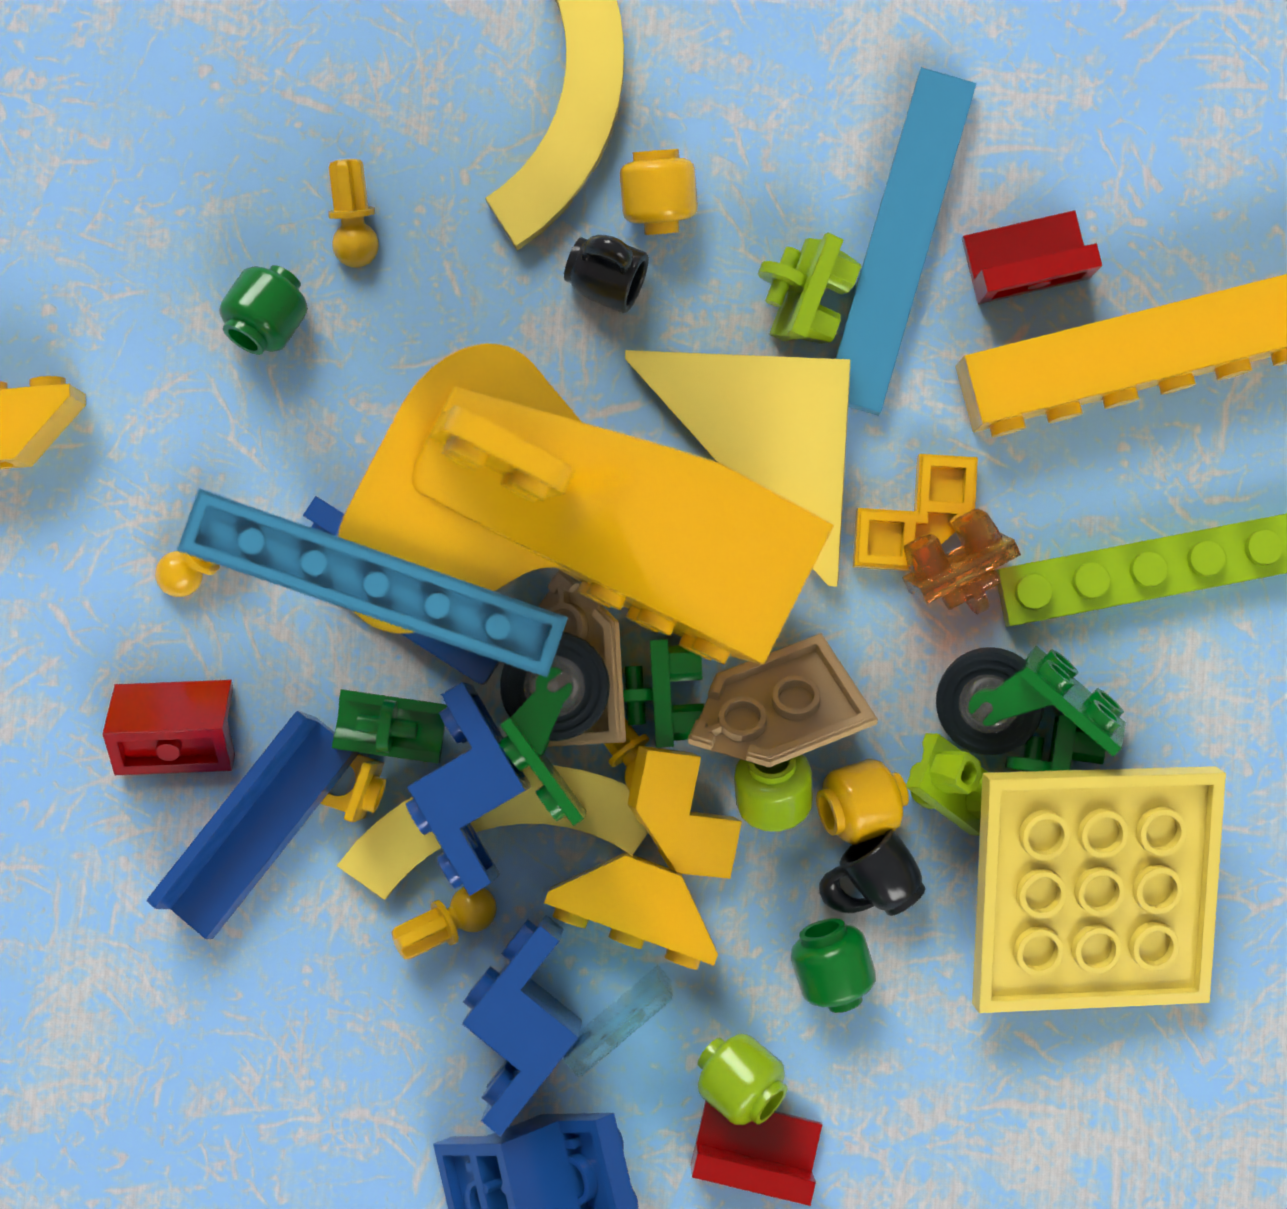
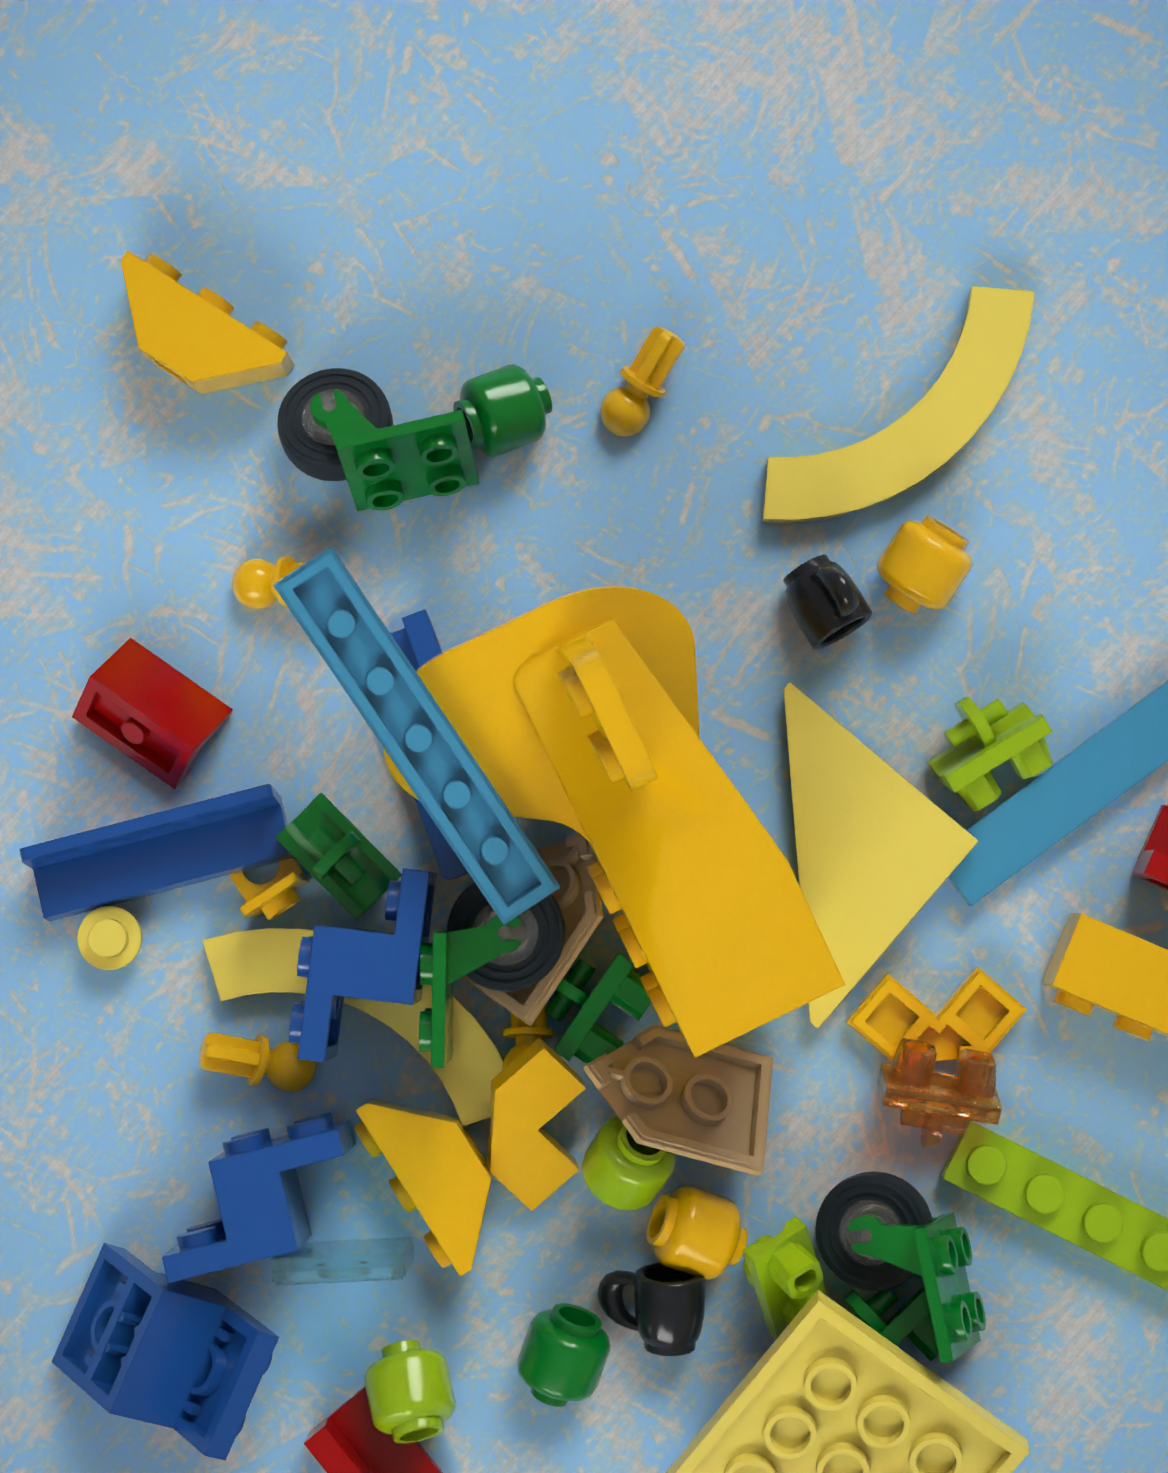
camera: 40 degrees right, 0 degrees up
(155, 410) = (343, 429): none -> green plate
(266, 916) = (109, 938): none -> light yellow plate

